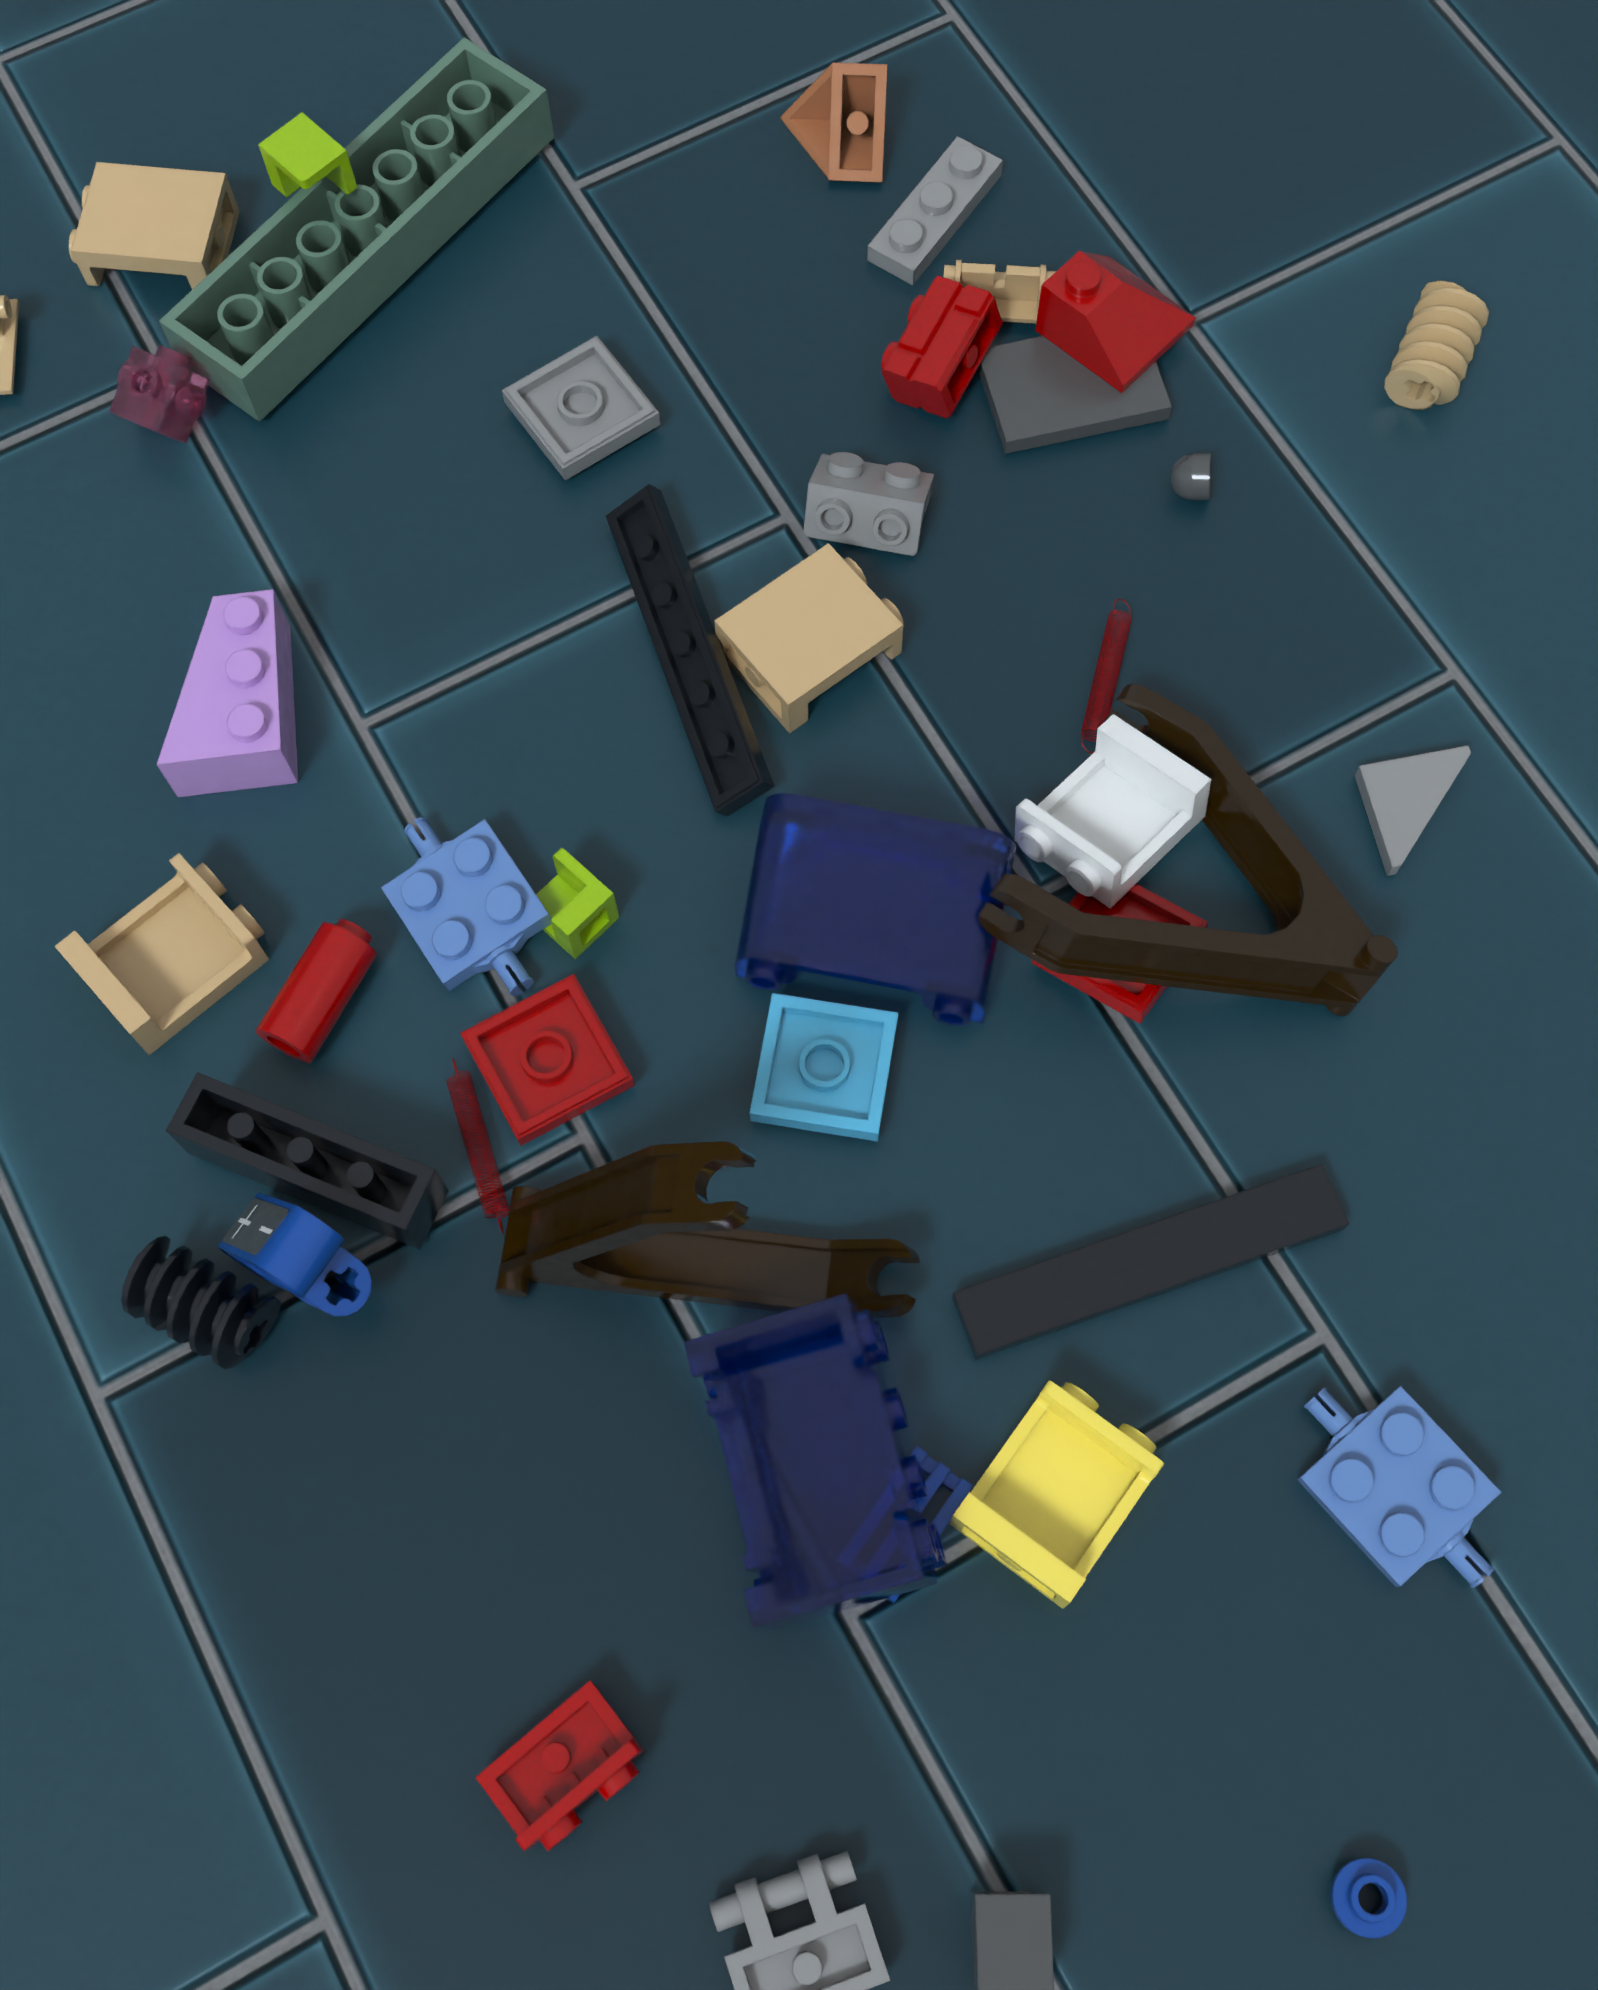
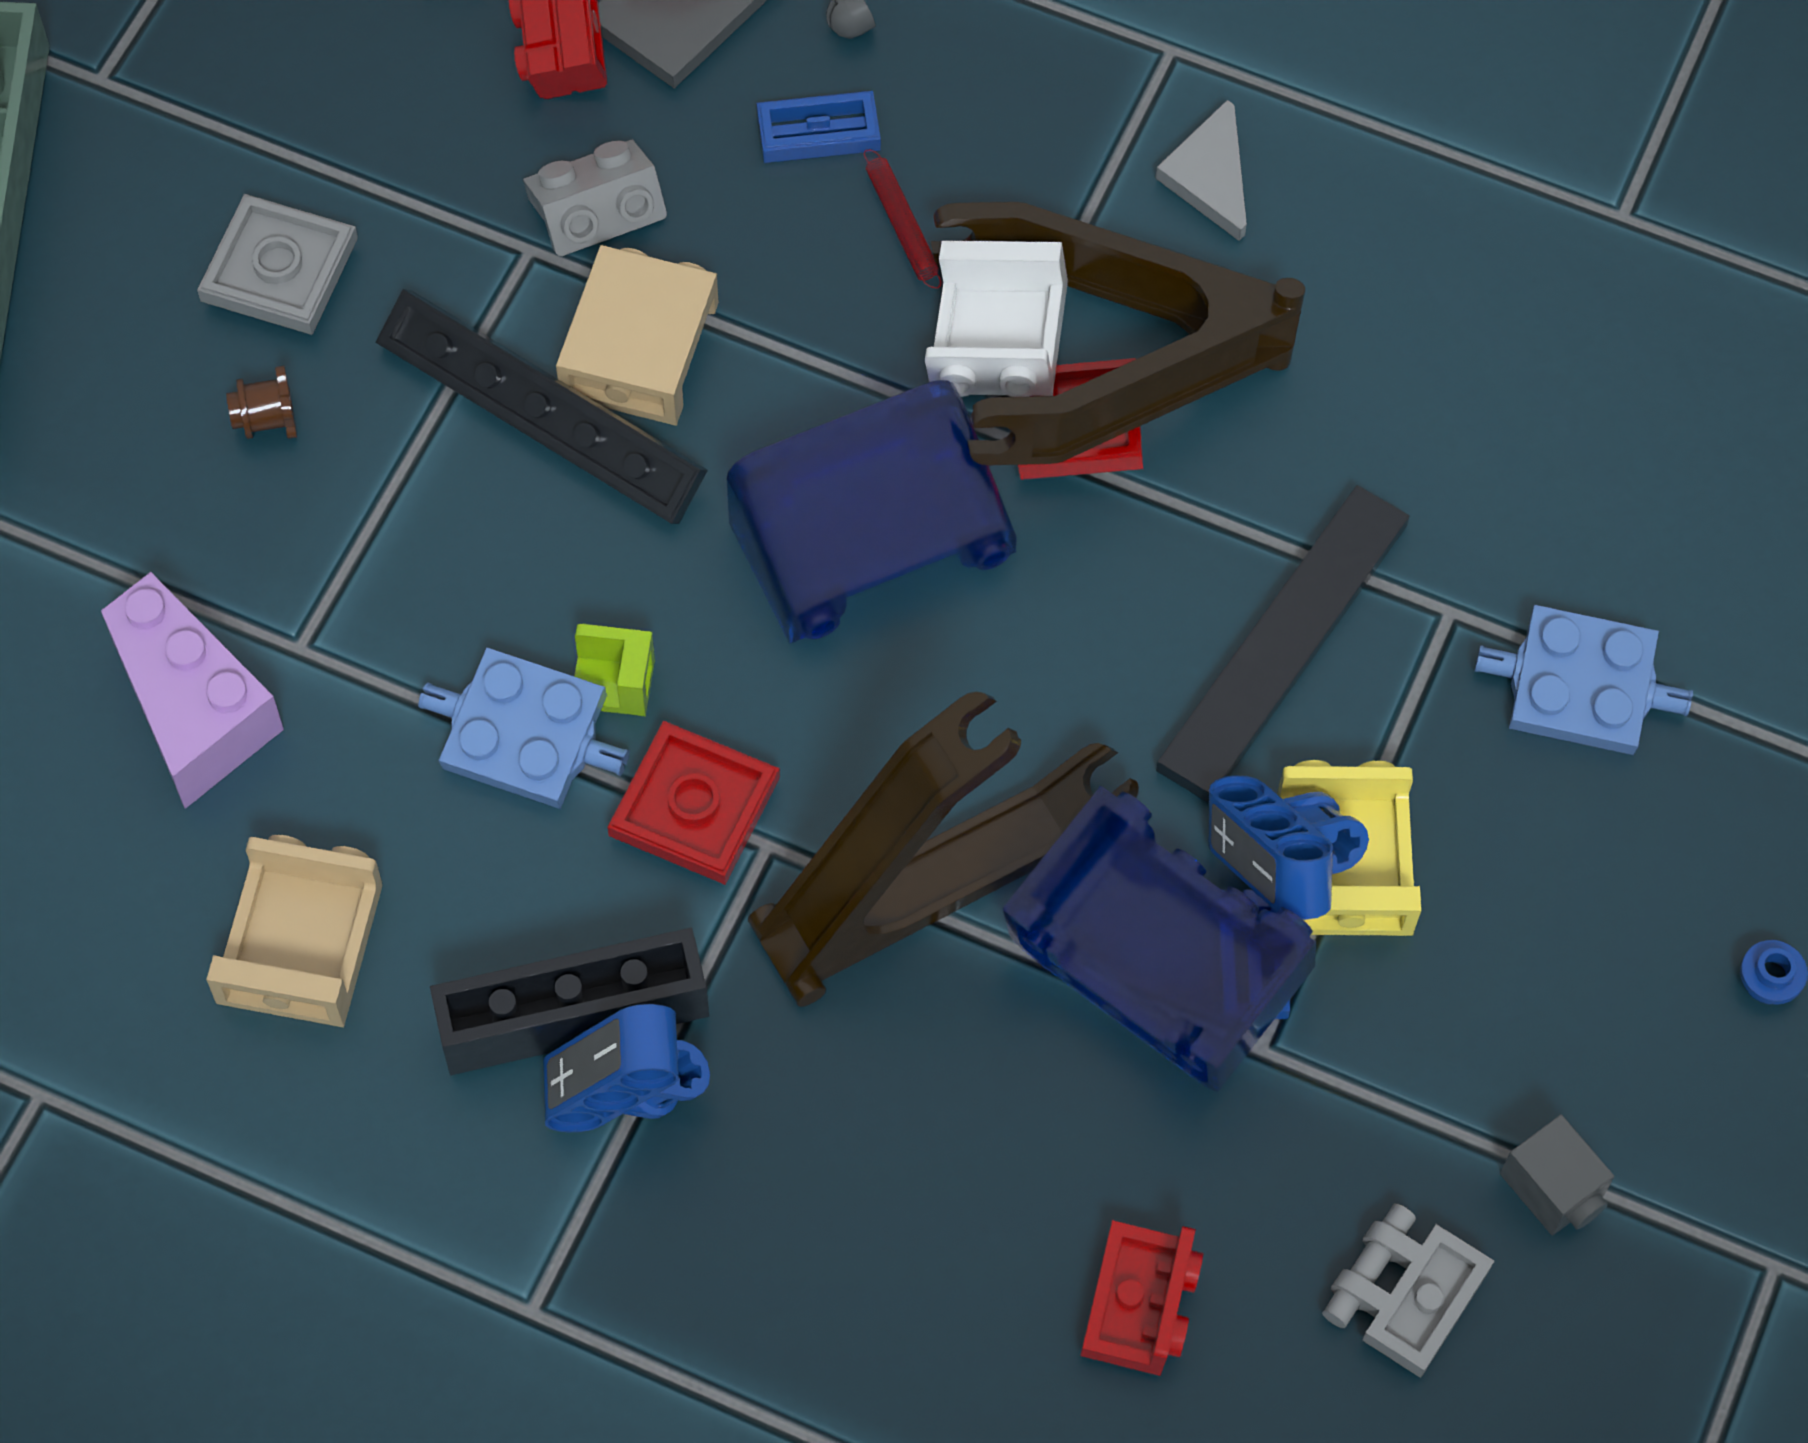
camera: 40 degrees left, 5 degrees down
(193, 1307) = (570, 1172): black piece -> none
(318, 990) = (457, 874): red brick -> none
(471, 1151) = (693, 913): red piece -> none
(478, 513) = (262, 405): none -> reddish brown brick
(824, 1067) = (921, 659): medium azure plate -> none
(993, 1453) = (1283, 845): none -> blue beam
(1092, 562) = (819, 134): none -> blue tile

